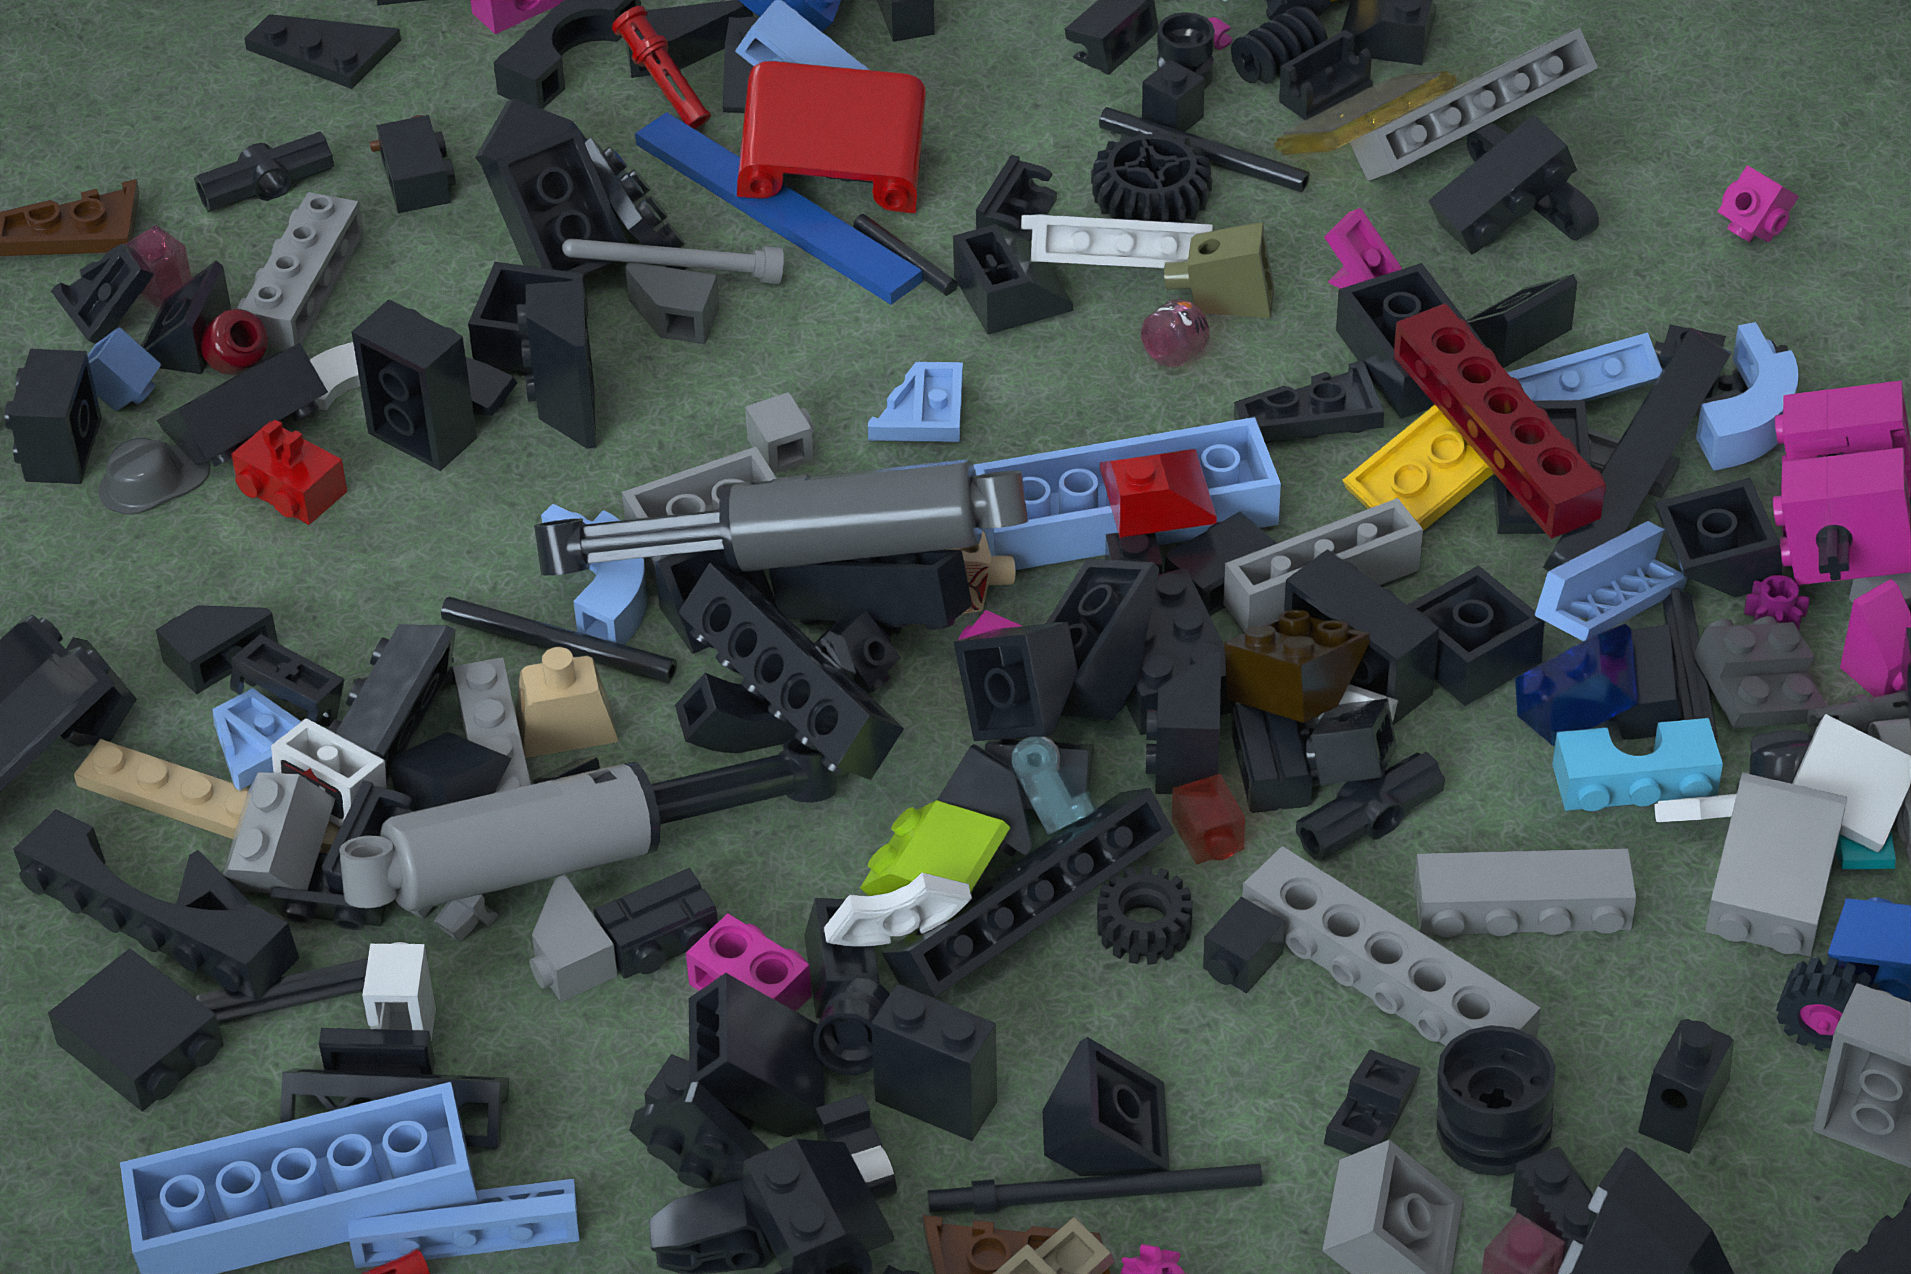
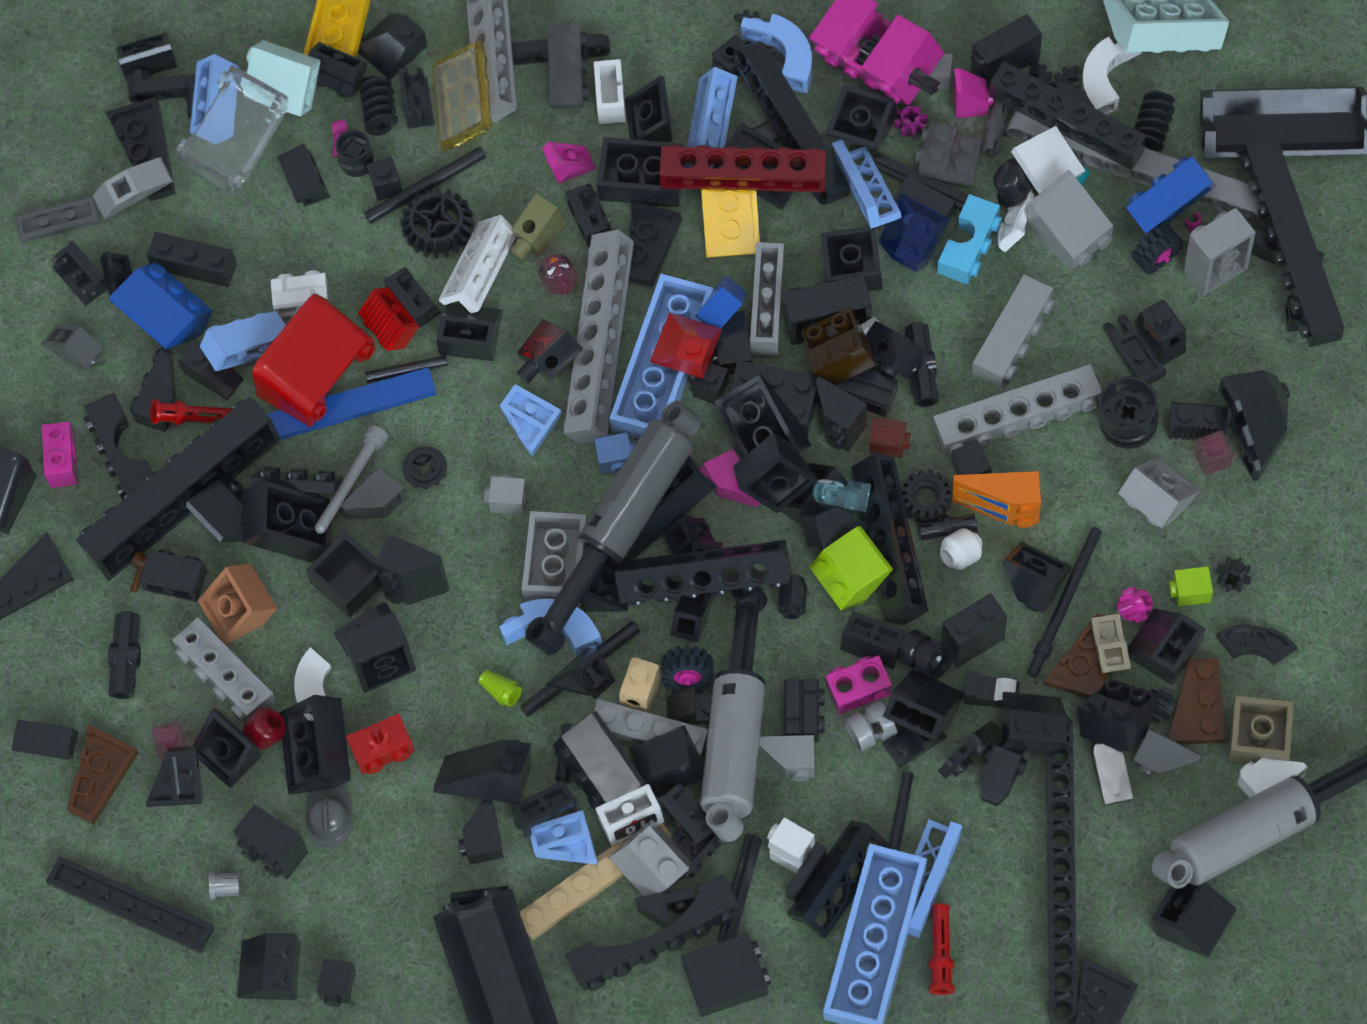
camera: 55 degrees left, 20 degrees up
(88, 150) = (44, 739): none -> black hinge
(121, 370) = (245, 793): medium blue brick -> none
(310, 601) = (487, 772): none -> black slope
(419, 240) = (237, 602): none -> nougat slope
(463, 81) = (159, 502): none -> black brick
(464, 564) = (501, 688): none -> lime cone
(541, 624) = (584, 675): none -> black slope
(556, 1140) = (901, 810): none -> black bar
(625, 732) = (687, 669): none -> black wheel
(664, 1012) = (862, 733): none -> light grey wheel
(779, 326) = (420, 457): none -> black gear
(846, 826) = (793, 598): none -> black brick
(873, 919) = (883, 601): white tile -> none
(948, 107) = (292, 291): none -> white brick
(956, 191) = (388, 319): none -> red brick
(1049, 365) = (547, 351): none -> black torso
(1083, 998) = (961, 549): none -> white head
(1114, 967) = (947, 526): none -> black pin
(1124, 404) = (599, 337): none -> light grey brick
(1217, 1003) = (1002, 496): none -> orange slope
(1263, 500) = (722, 303): none -> blue slope
(1297, 325) = (587, 212): none -> black hinge
(1372, 1104) = (1087, 463): black slope -> none
(1509, 249) = (609, 91): none -> white piece
(1621, 1077) = (1135, 351): none -> black hinge

